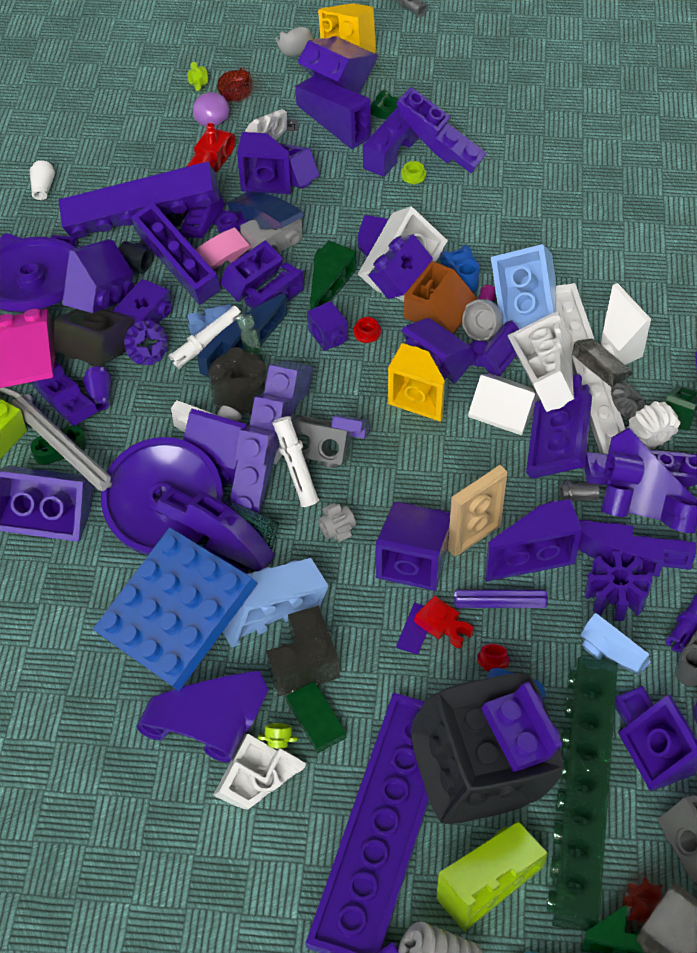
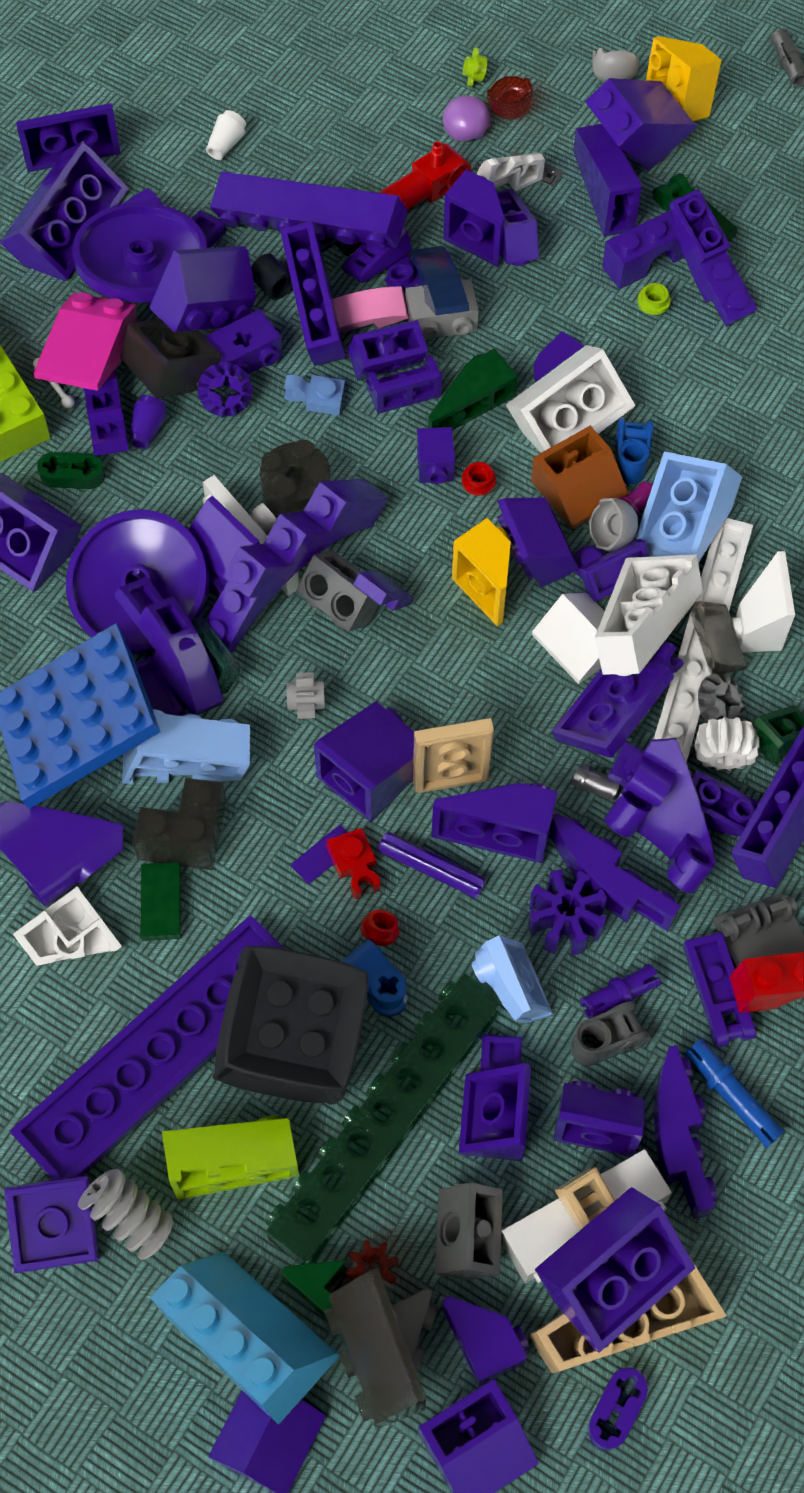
camera: 25 degrees right, 10 degrees up
(63, 444) = (67, 472): light grey axle -> none
(196, 343) = (292, 411): white pin -> none
(249, 335) = (335, 436): clear green axle -> none
(266, 318) = (346, 421): dark blue slope -> none
(278, 735) = (107, 902): lime plate -> none
(295, 460) = (294, 596): white pin -> none
(400, 266) = (567, 418): dark purple brick -> none
(522, 728) = (319, 1027): dark purple bracket -> none

